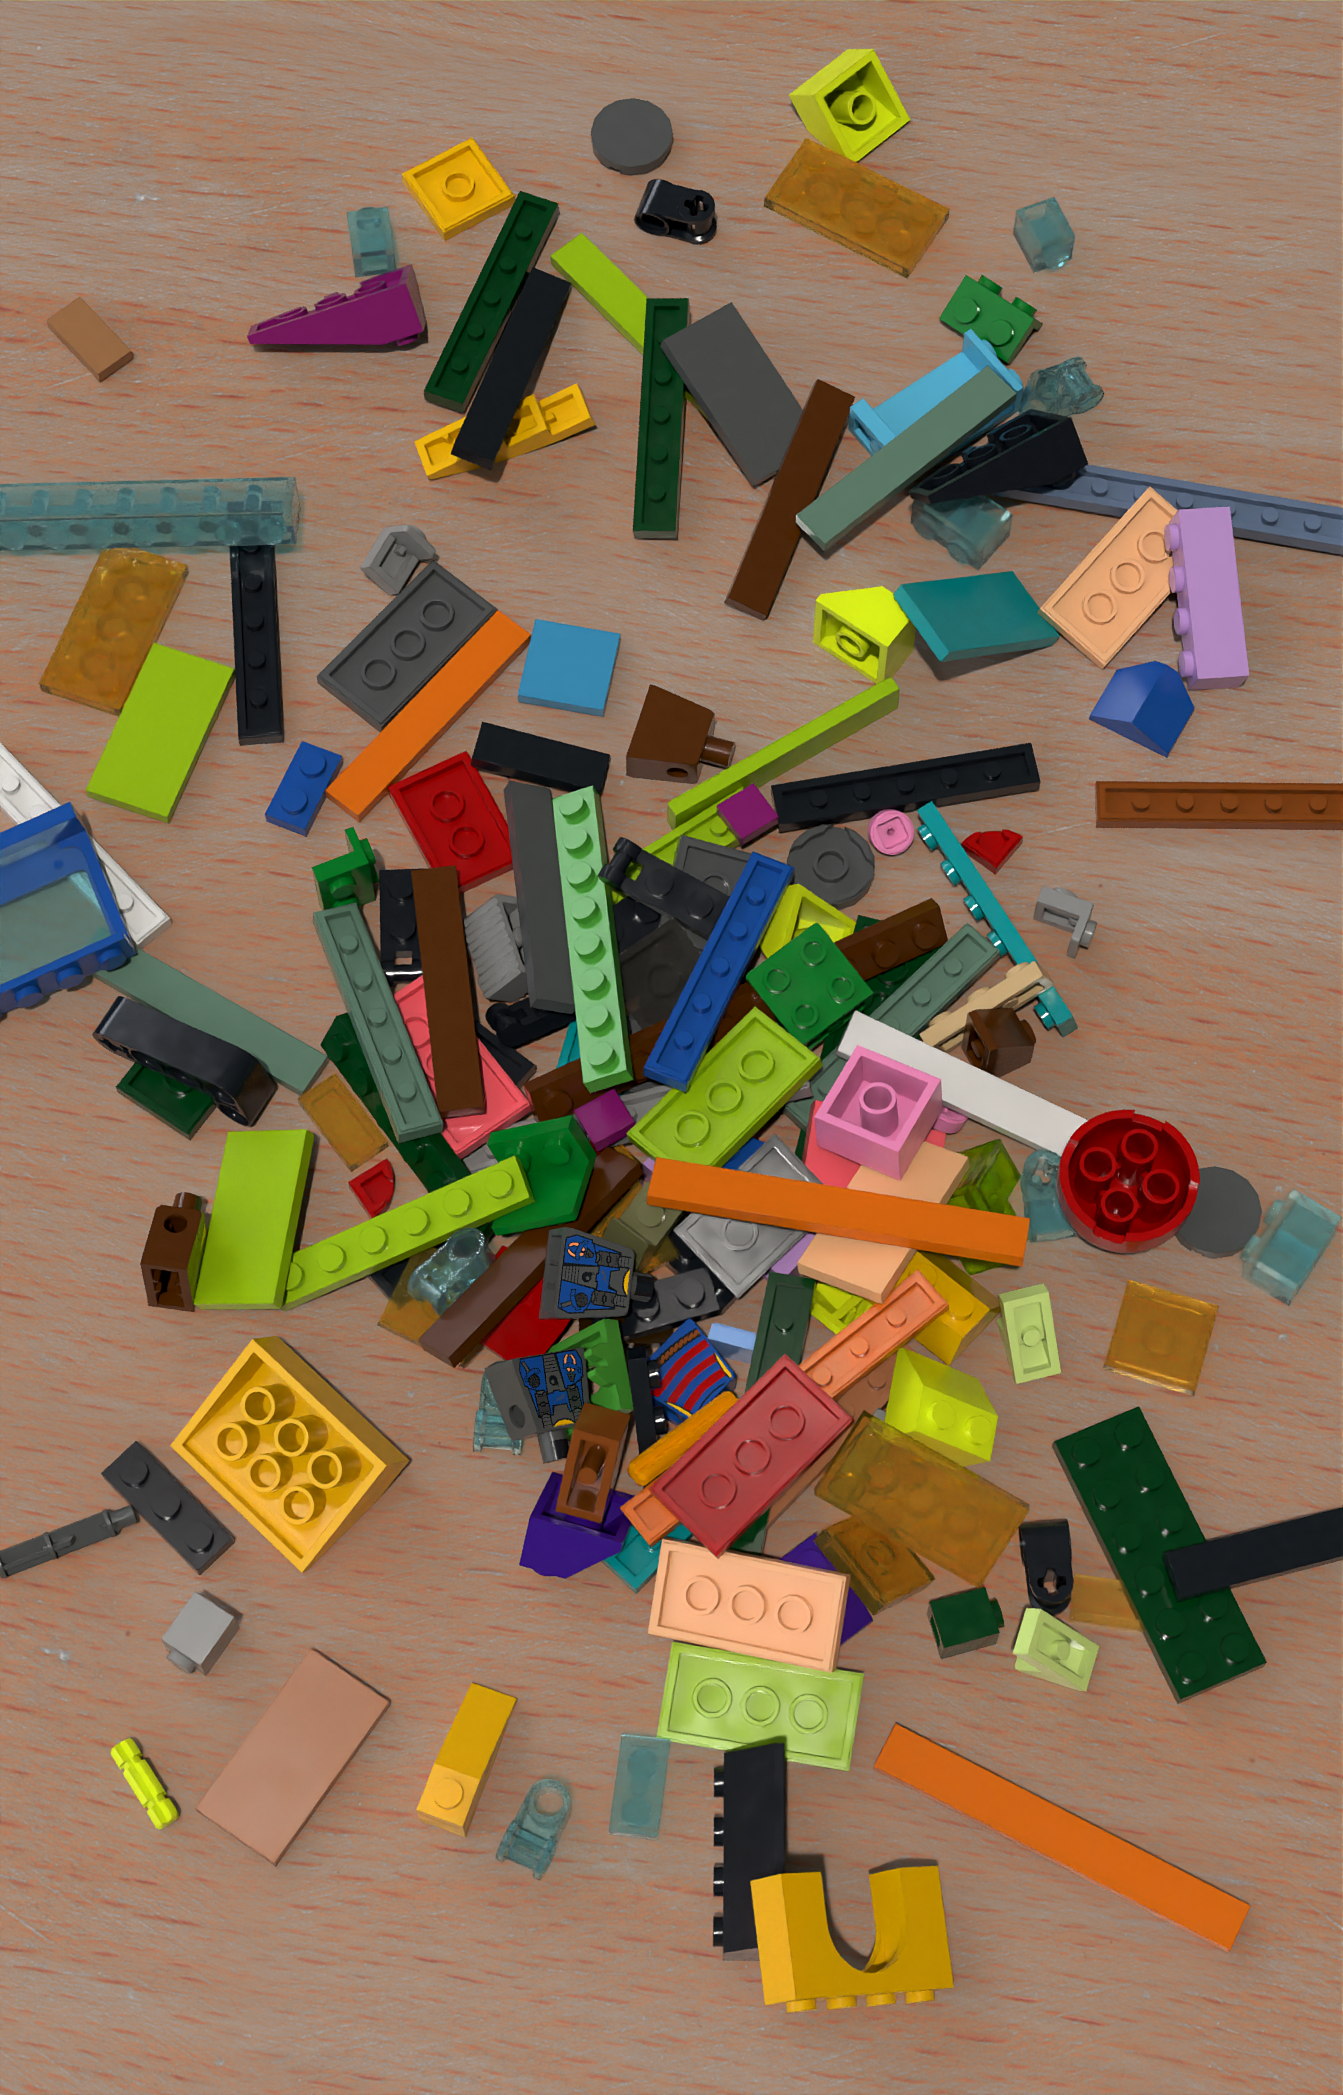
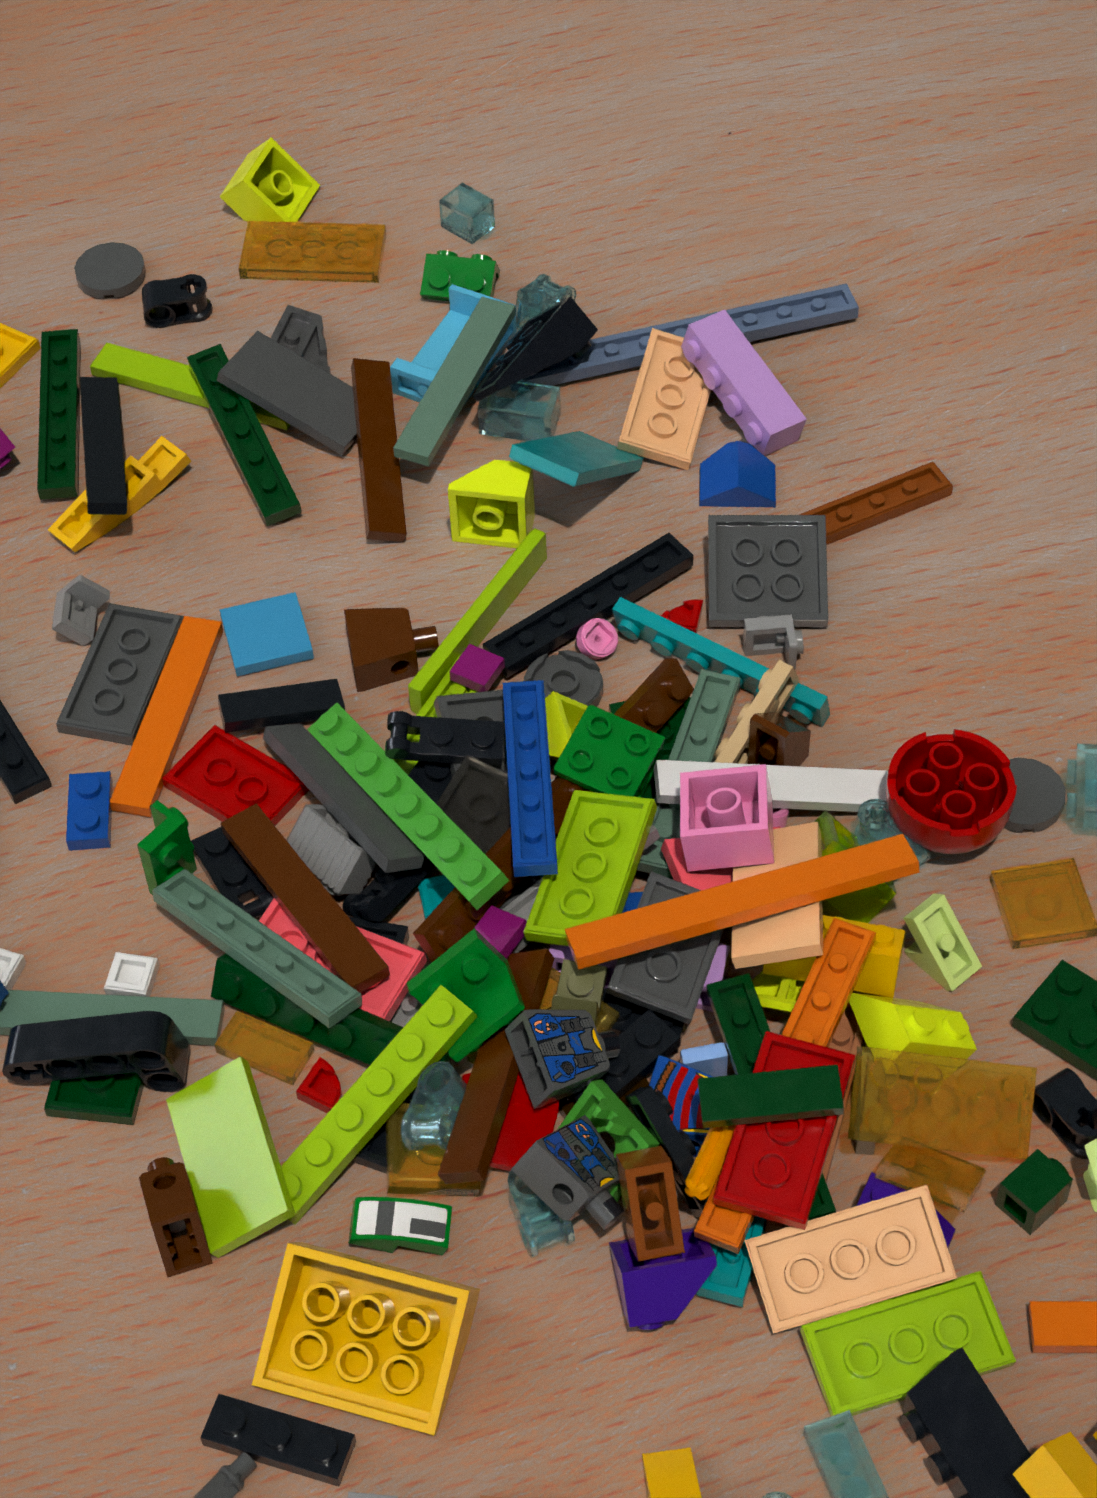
camera: 25 degrees left, 15 degrees down
(258, 988) = (131, 975): none -> white tile
(374, 1361) = (402, 1222): none -> slope
(749, 1421) = (770, 1096): none -> dark green tile
(782, 323) = (303, 334): none -> flat silver wing
(1104, 836) = (767, 569): none -> dark grey plate

